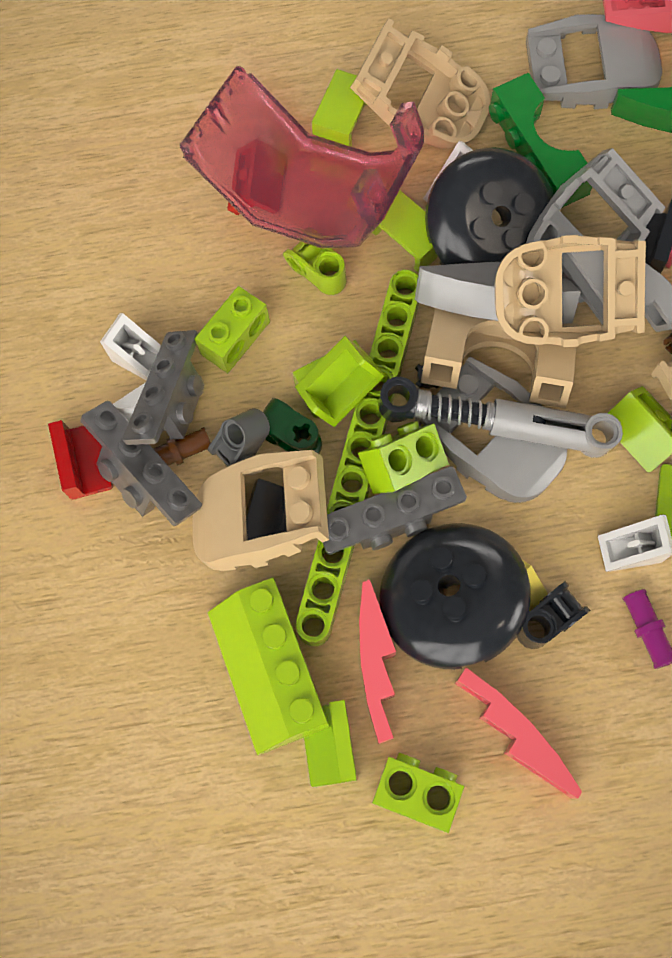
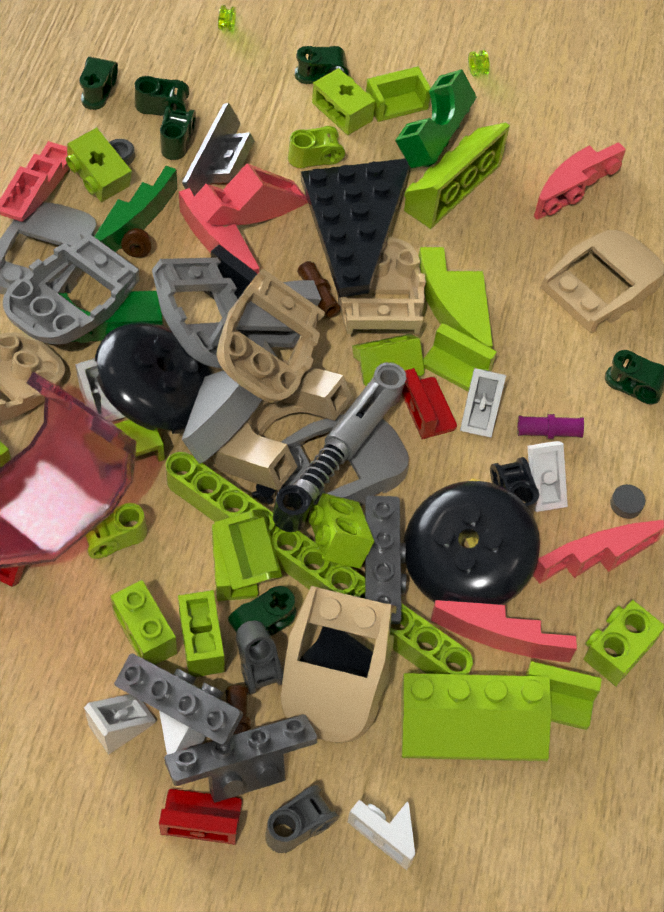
camera: 80 degrees left, 15 degrees down
(109, 546) = (306, 817): none -> dark grey piece
(118, 633) = (391, 838): none -> white slope
(241, 380) = (201, 633): none -> lime brick
(506, 85) = (49, 316): none -> light grey slope
(579, 645) = (549, 475): none -> white slope
(599, 746) = (627, 501): none -> dark grey tile
(610, 490) = (427, 405): none -> red panel
(649, 132) = (138, 237): none -> reddish brown plate

